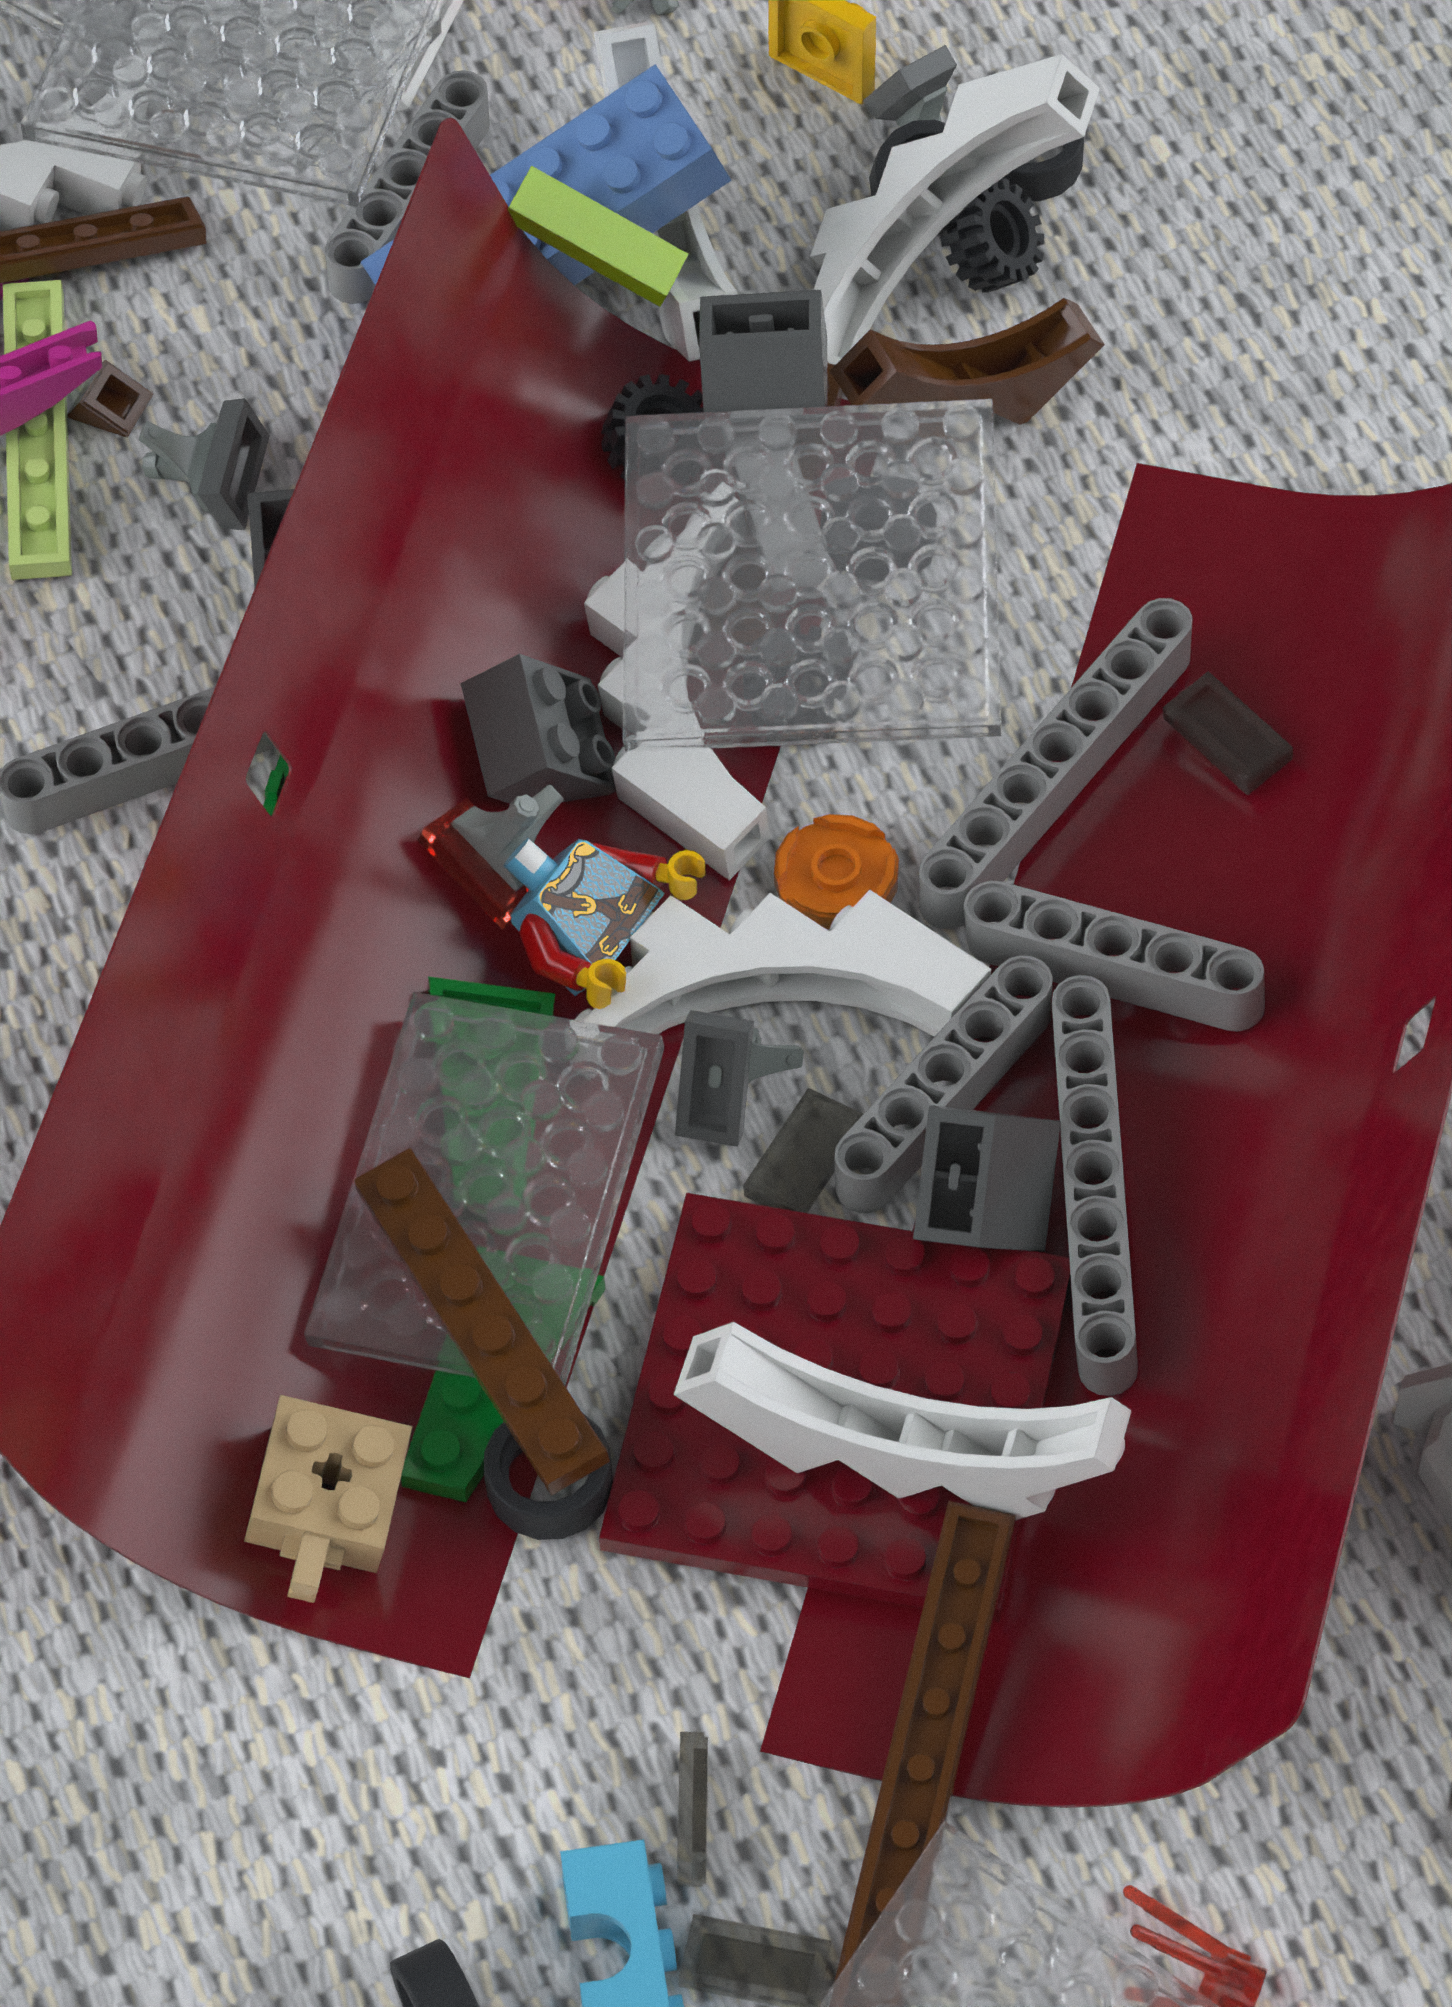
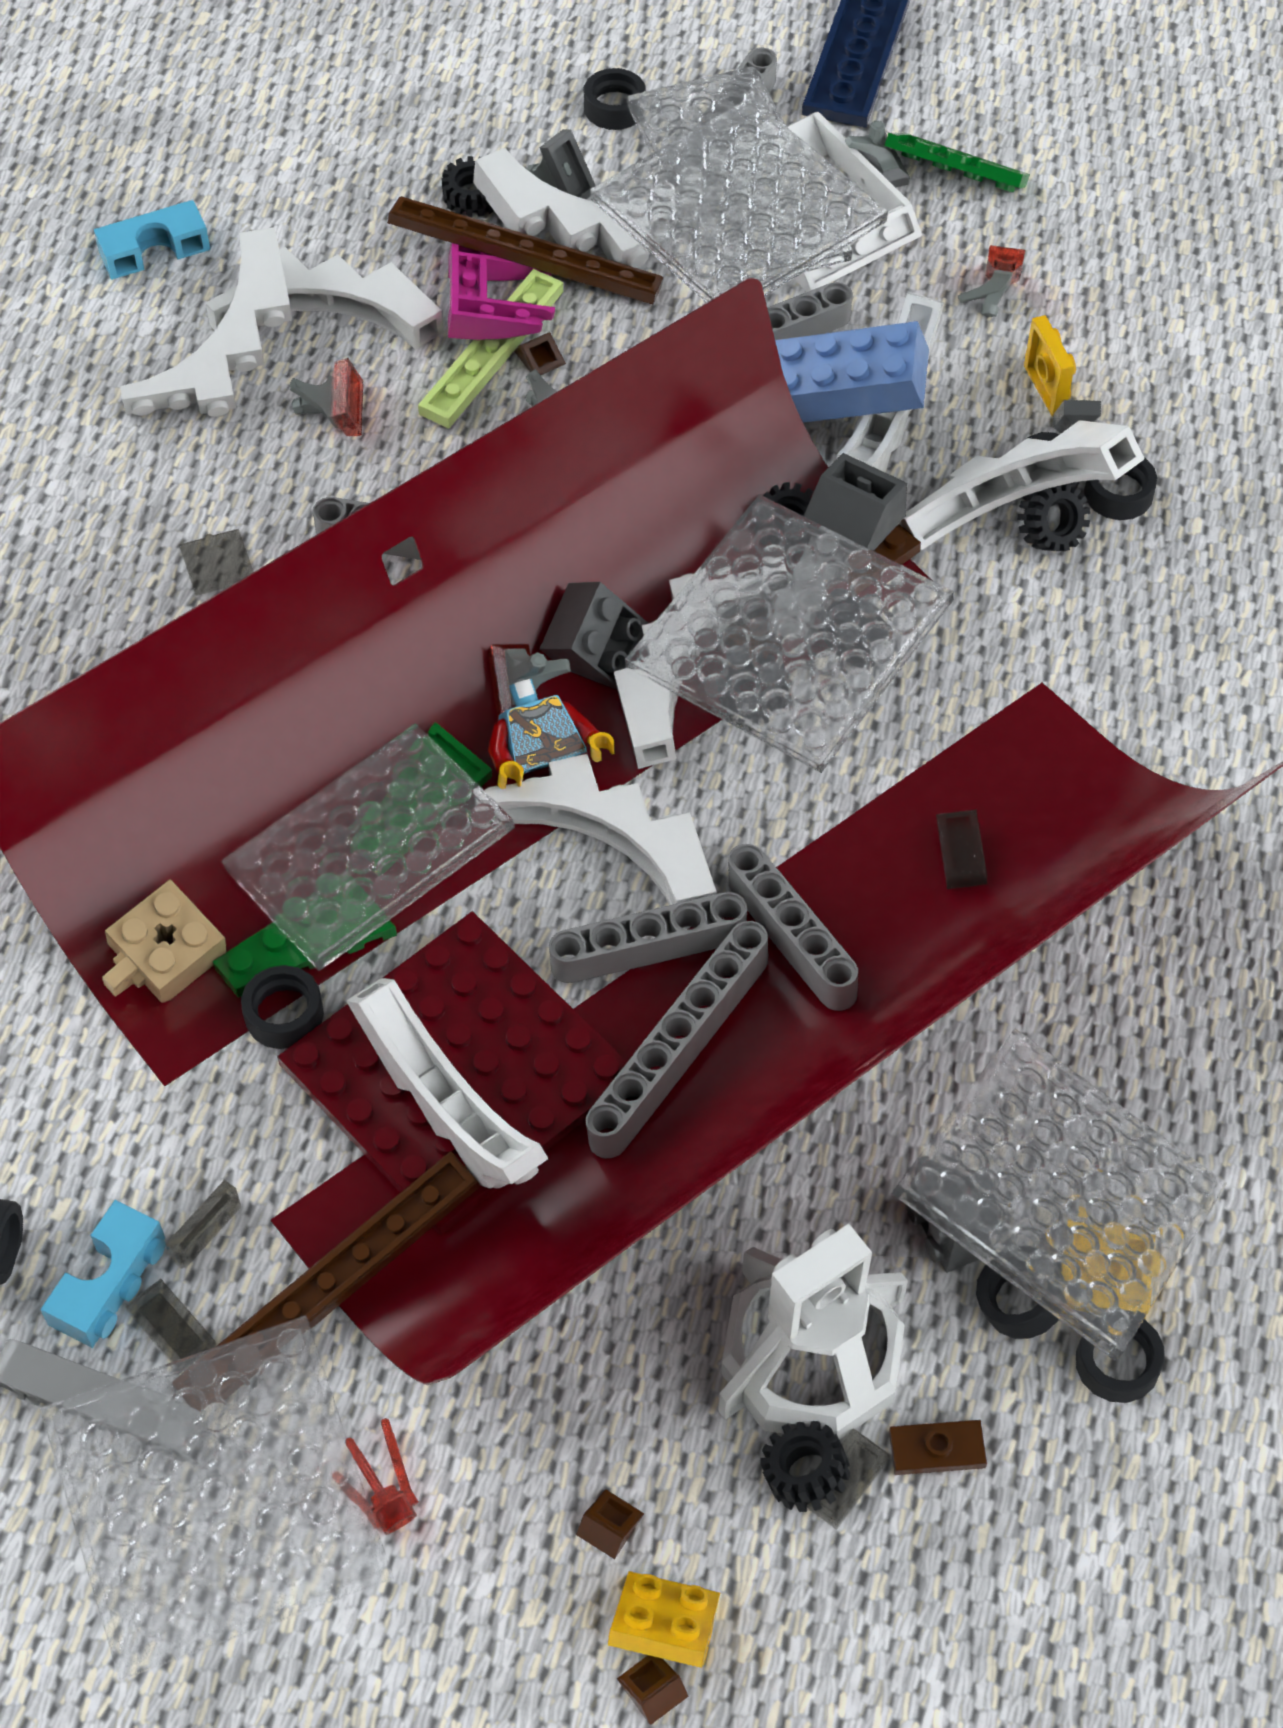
camera: 35 degrees right, 0 degrees up
(481, 1322) = (299, 907): reddish brown plate -> none
(596, 236) = (819, 394): lime tile -> none
(716, 1066) = (536, 856): dark grey piece -> none
(801, 1154) = (533, 933): clear smoke tile -> none
(834, 866) = (695, 789): orange tile -> none
(986, 1179) = (616, 997): dark grey slope -> none
(1012, 367) = (996, 590): reddish brown arch -> none
(1066, 736) = (868, 795): light grey beam -> none

